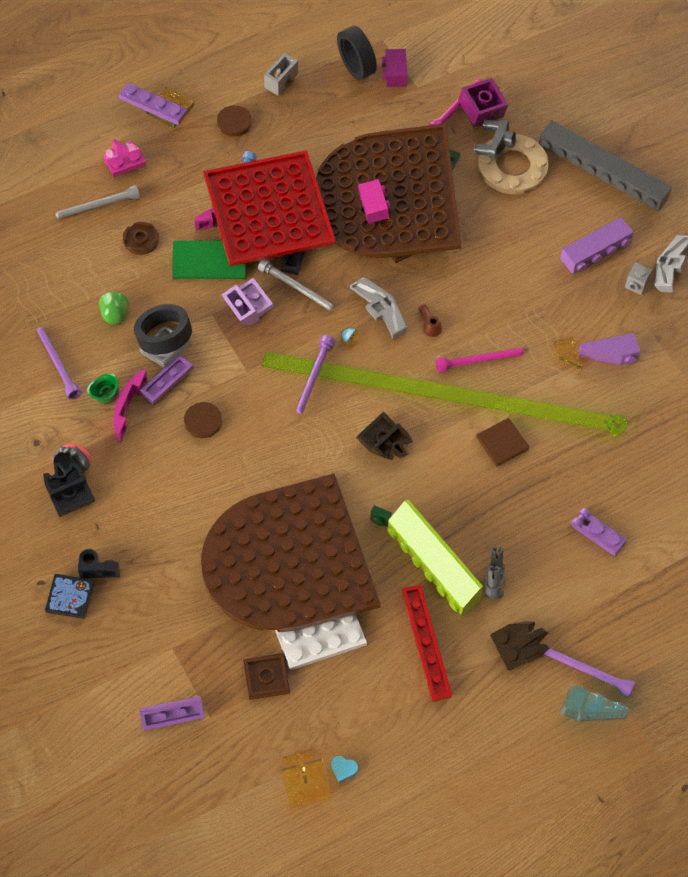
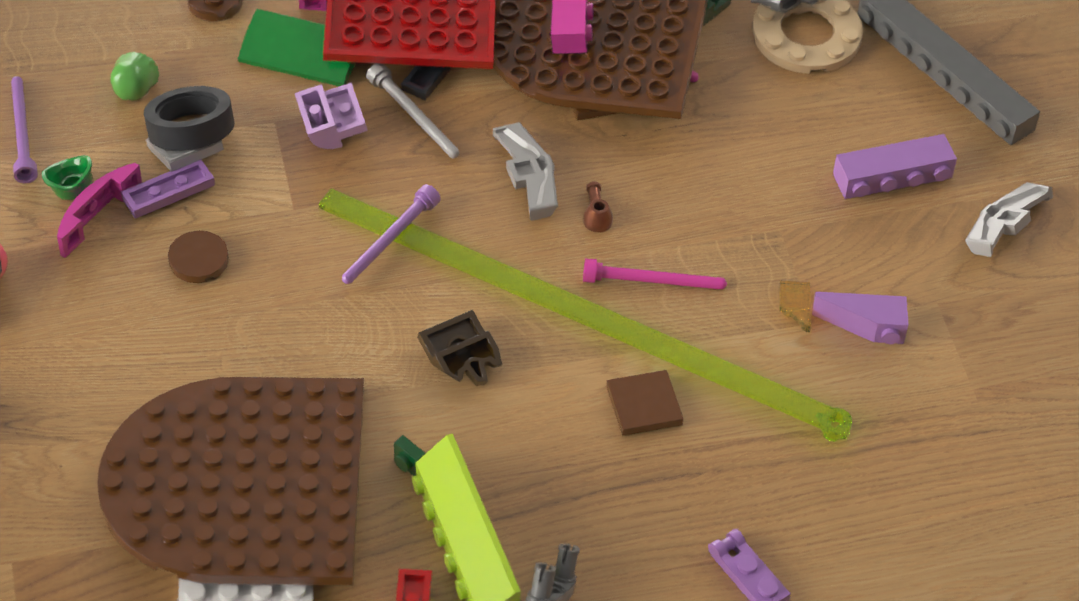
camera: 15 degrees right, 10 degrees down
(350, 336) = (467, 200): tile -> none
(638, 278) = (943, 226): light grey brick -> none

